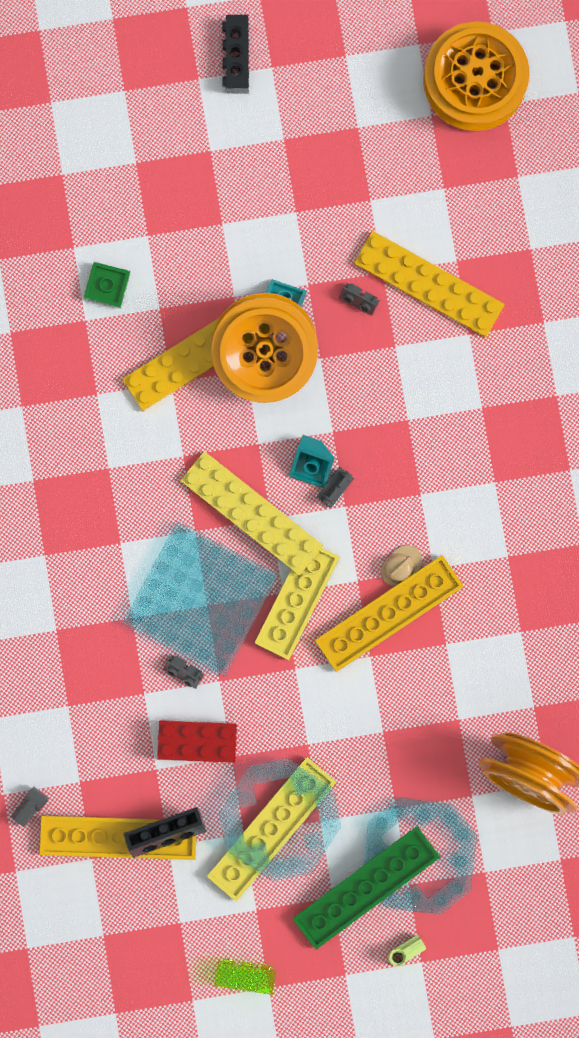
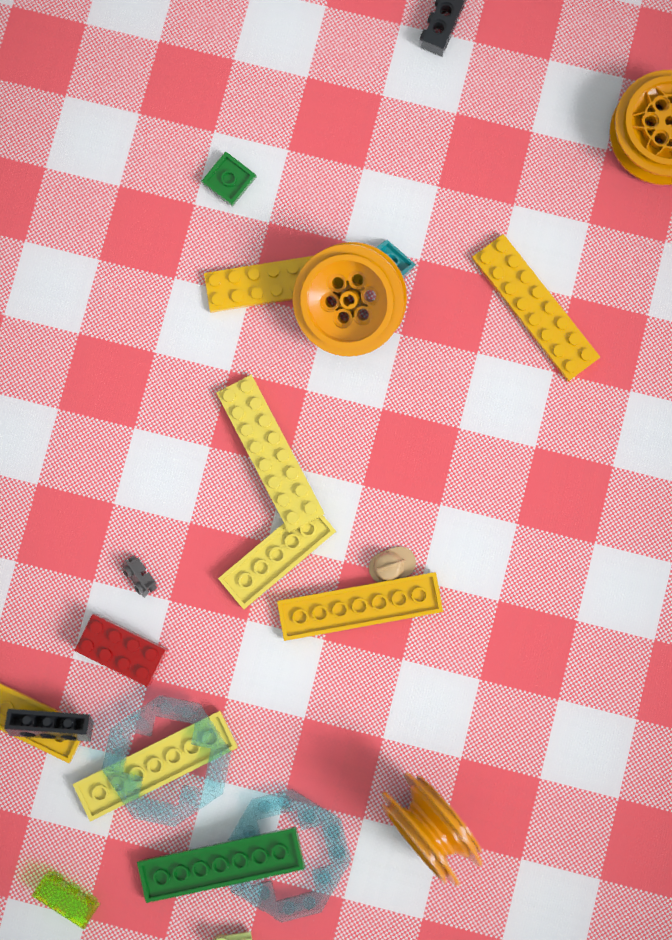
camera: 30 degrees right, 0 degrees up
(200, 598) = (185, 514): clear light blue plate -> none
(312, 462) = (349, 428): teal slope -> none
(335, 487) = (361, 462): dark grey hinge -> none
(351, 295) = (467, 299): dark grey hinge -> none

